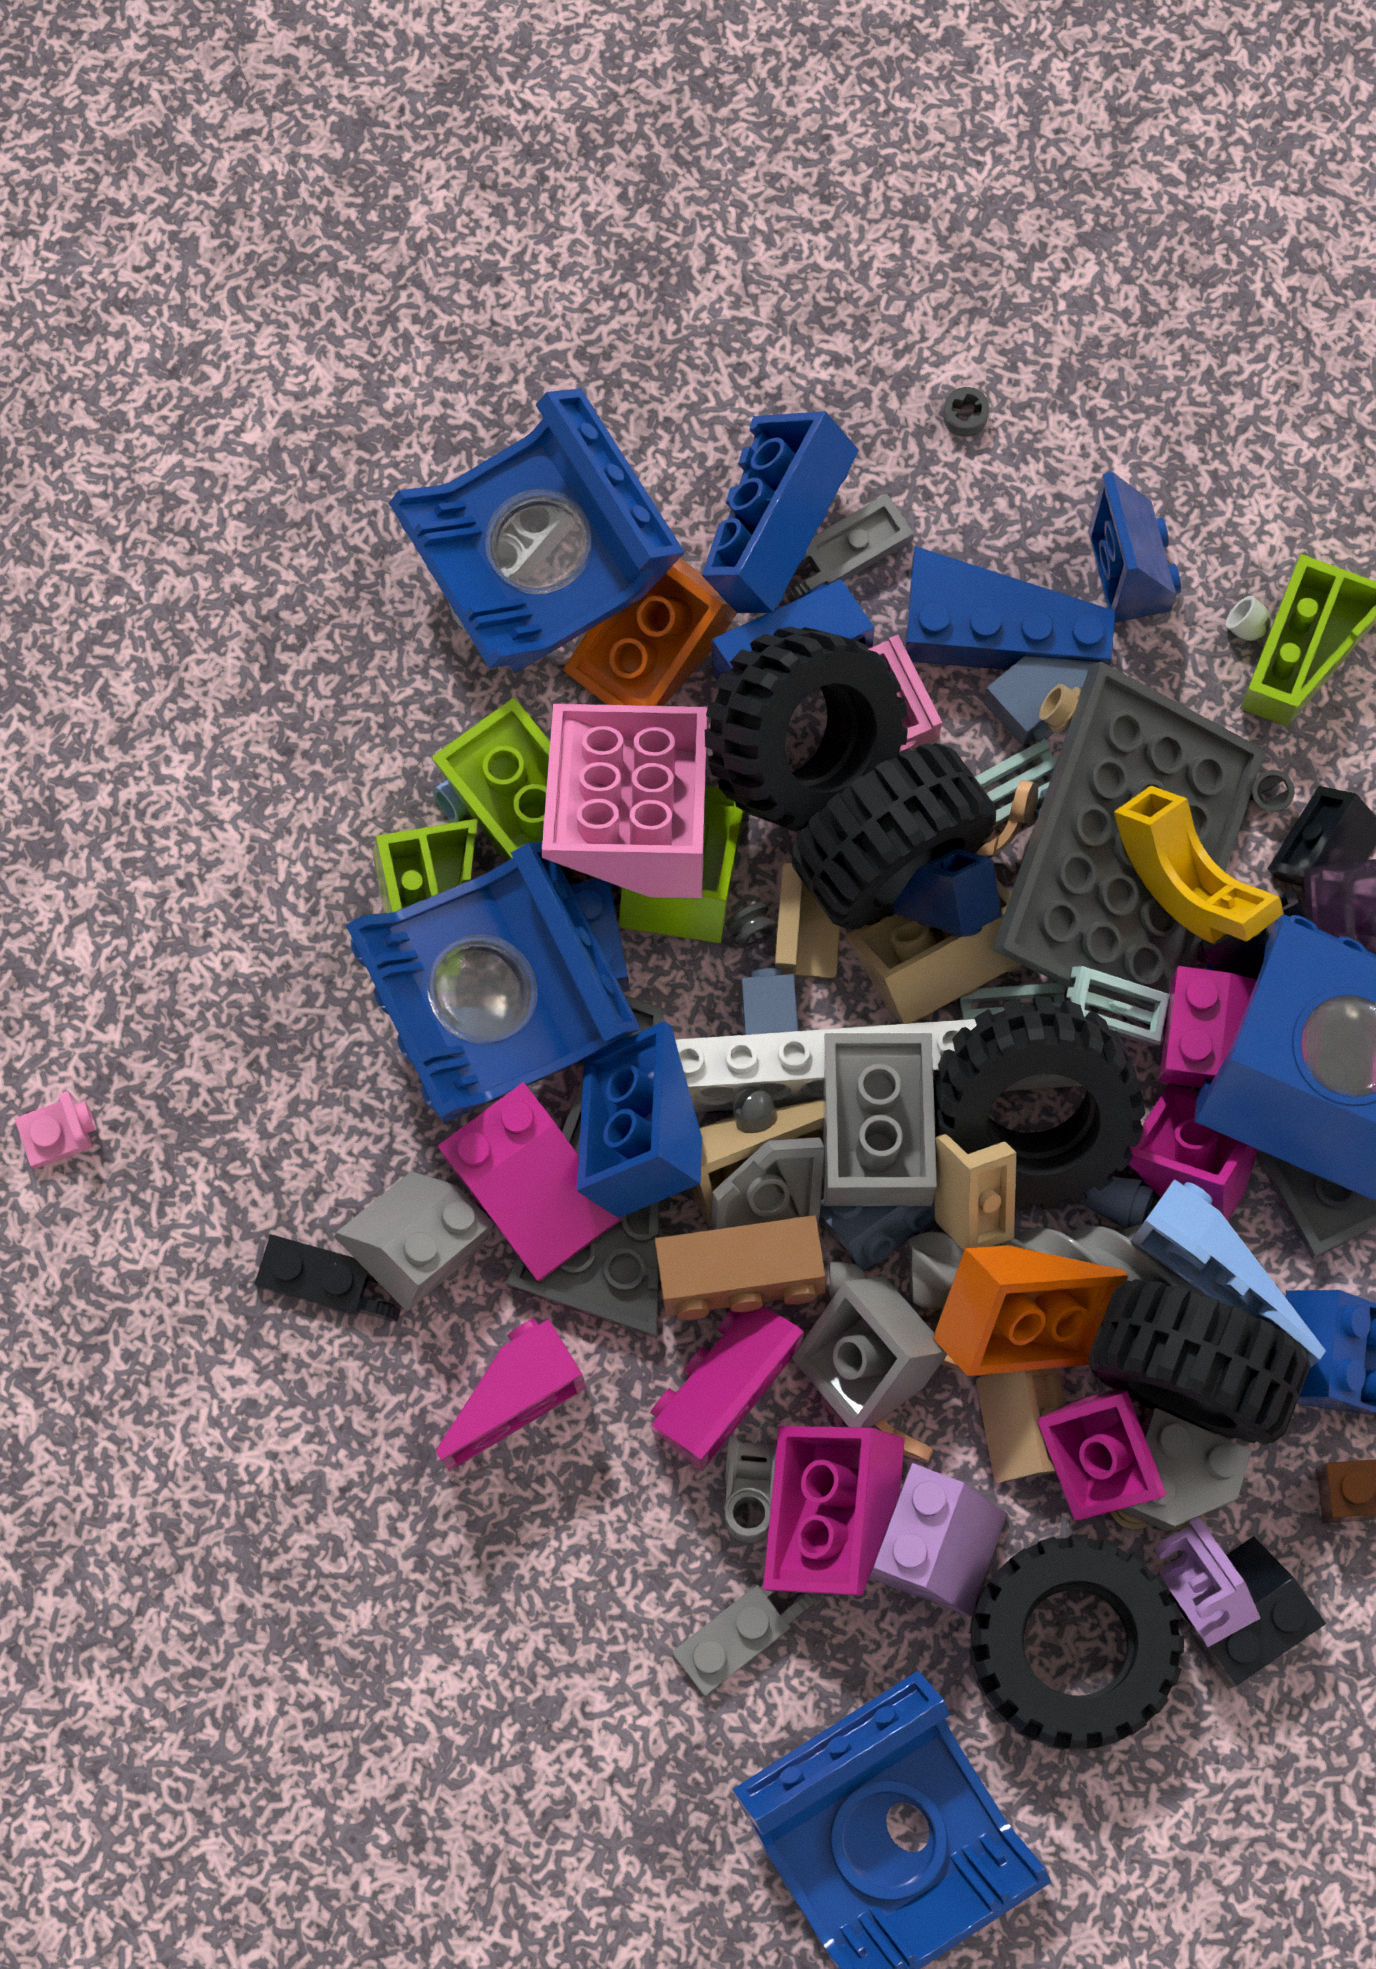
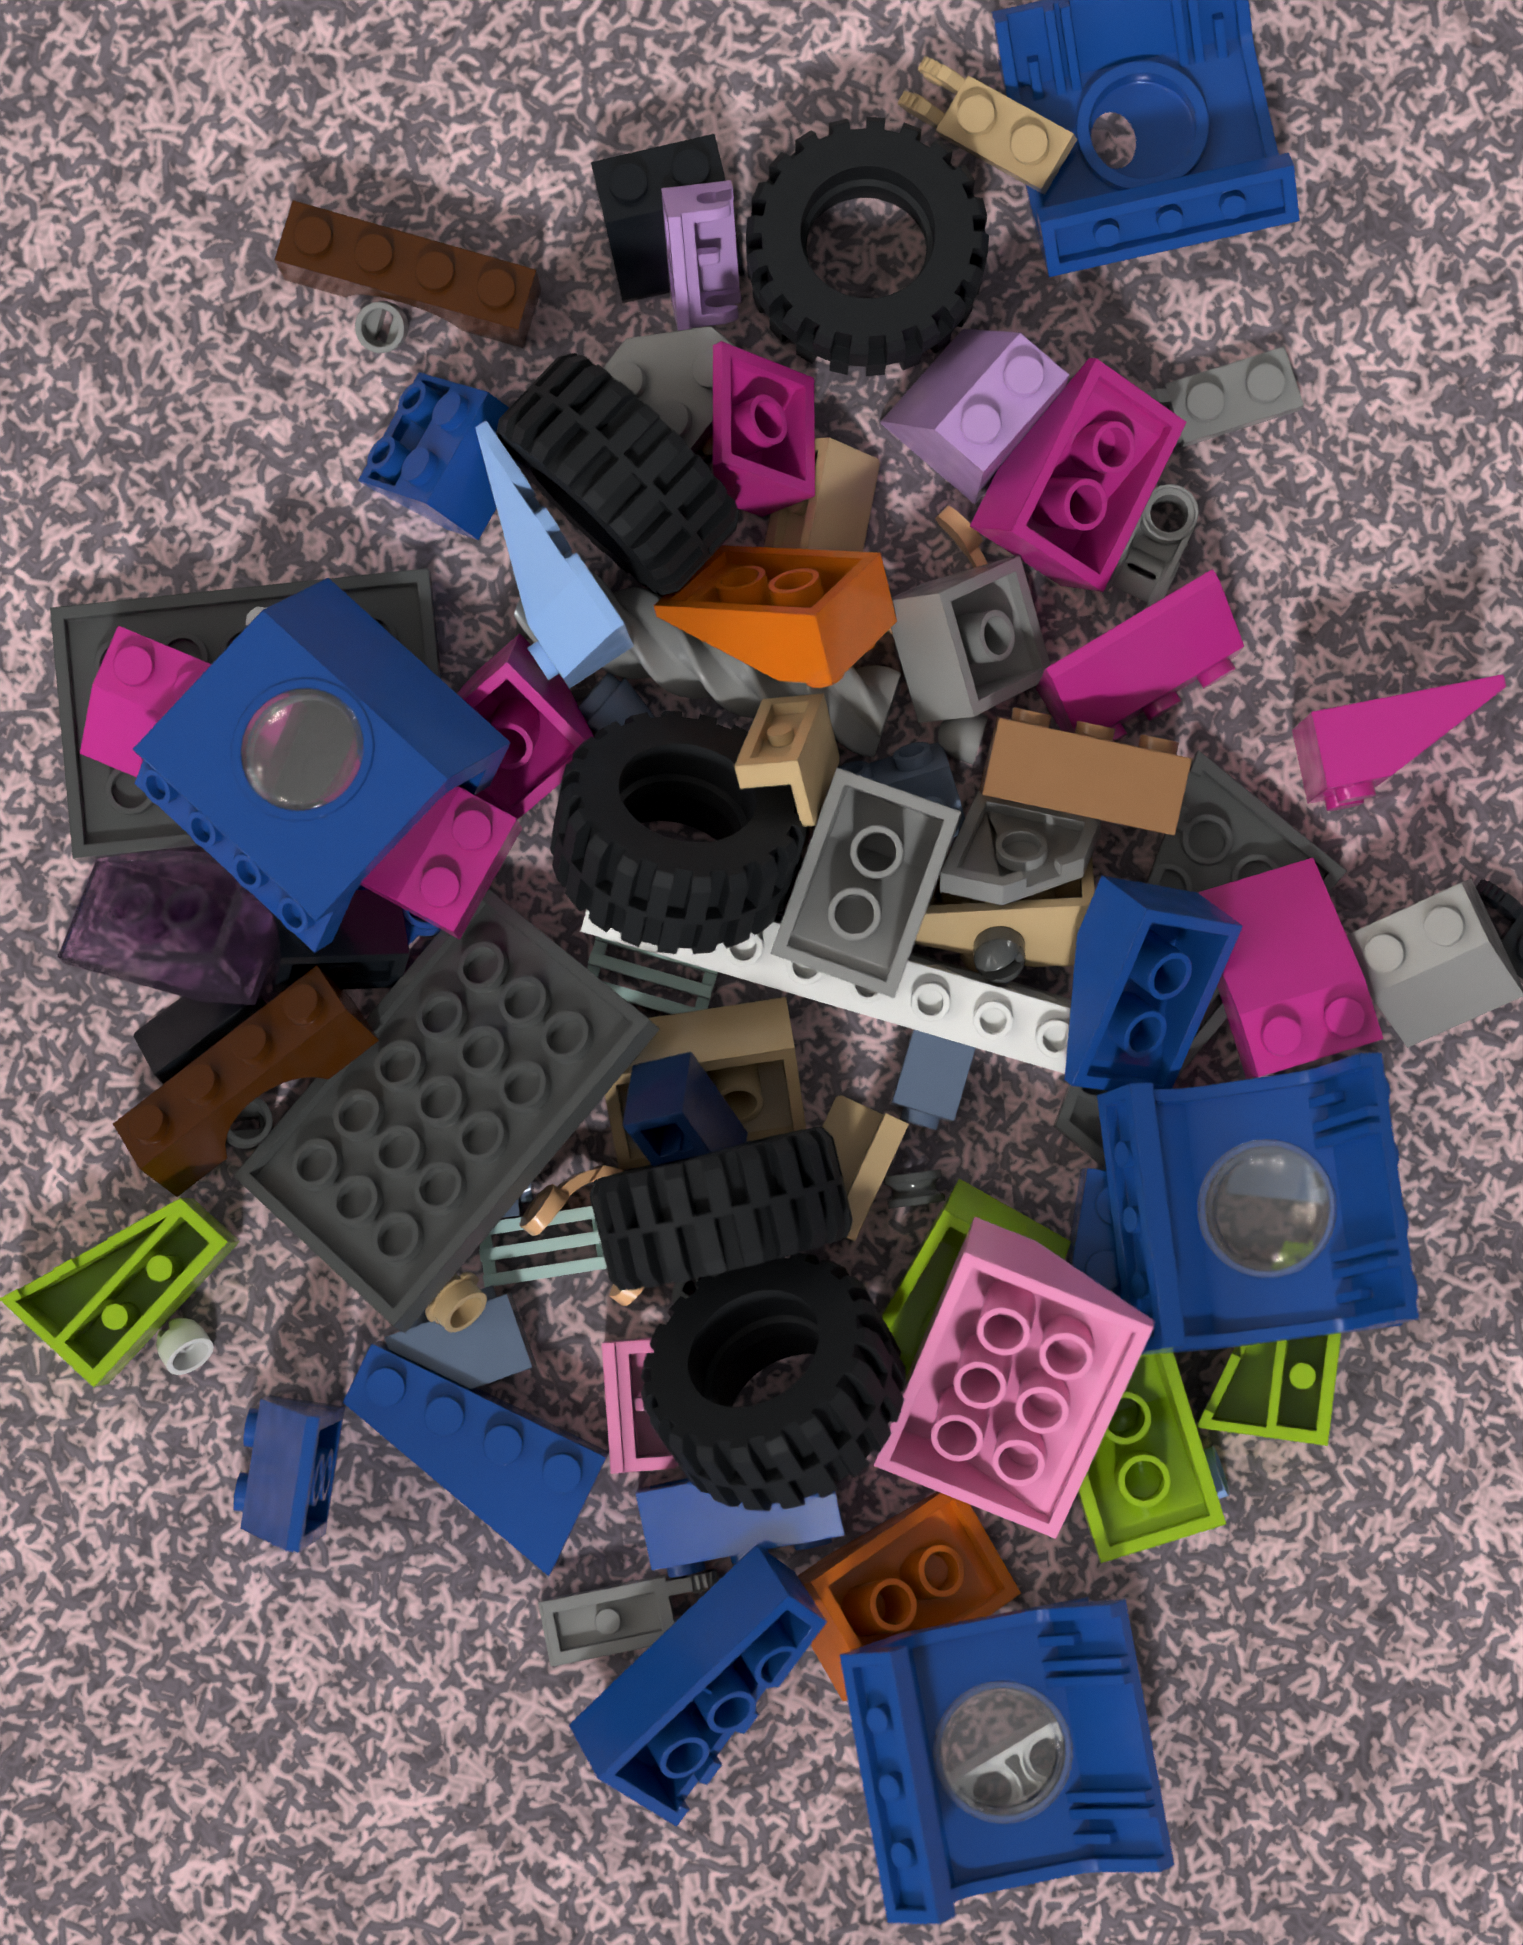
camera: 160 degrees left, 10 degrees up
(957, 400) = (407, 1722): dark grey bush -> none
(1012, 1791) = (993, 127): none -> tan hinge
(1080, 995) = (575, 944): light aqua tile -> none
(1181, 874) = (400, 1039): yellow arch -> none
(1316, 771) = (299, 1034): none -> reddish brown arch

